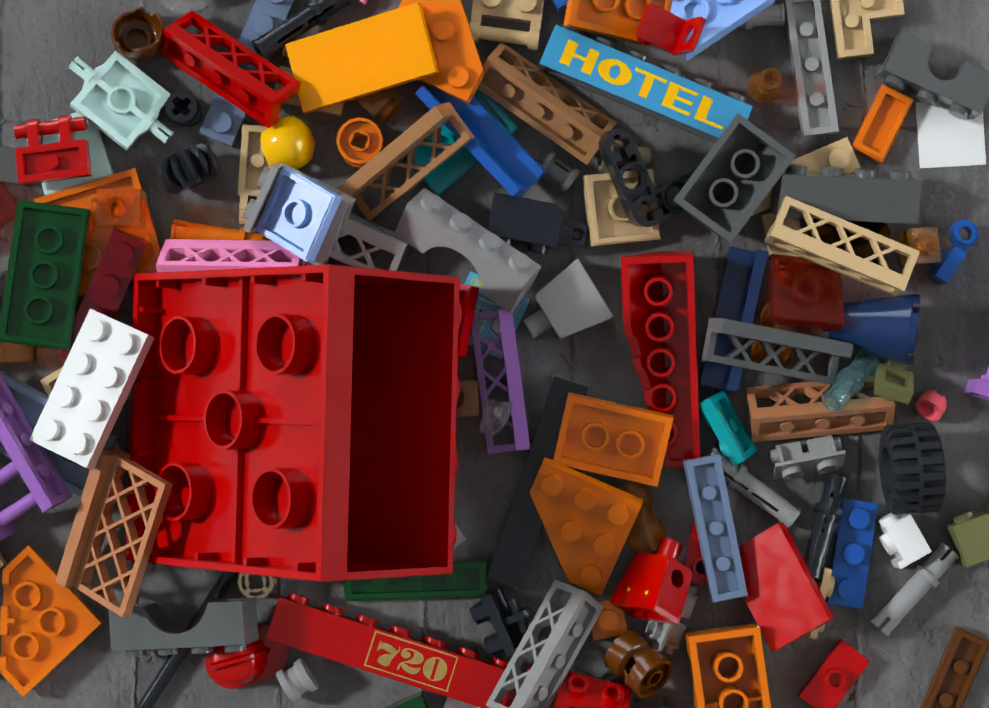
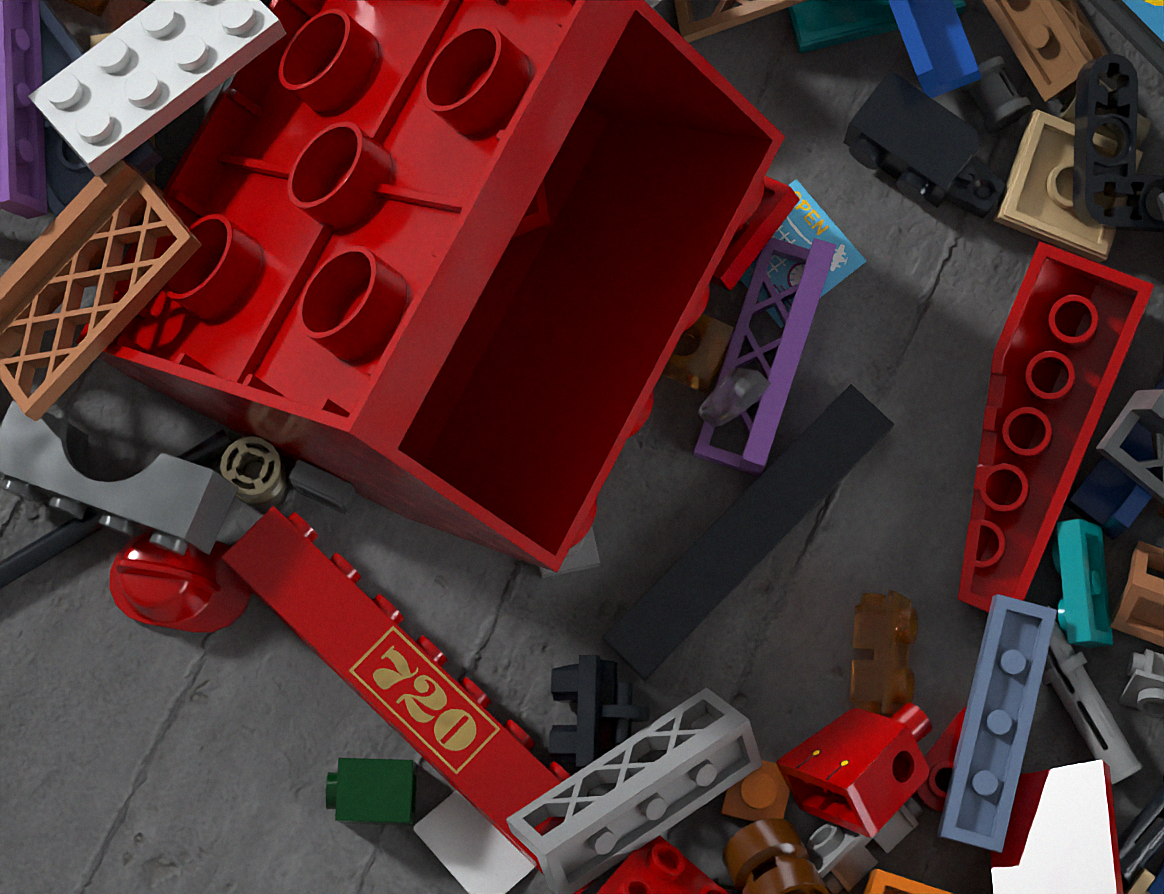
camera: 30 degrees right, 10 degrees down
(297, 680) = (236, 650): light grey wheel -> none
(466, 581) = (490, 589): dark green tile -> none
(502, 269) = (849, 184): light grey arch -> none
(568, 304) = (923, 288): light grey torso -> none
(583, 521) = (794, 618): orange plate -> none
(613, 439) = (899, 512): orange plate -> none

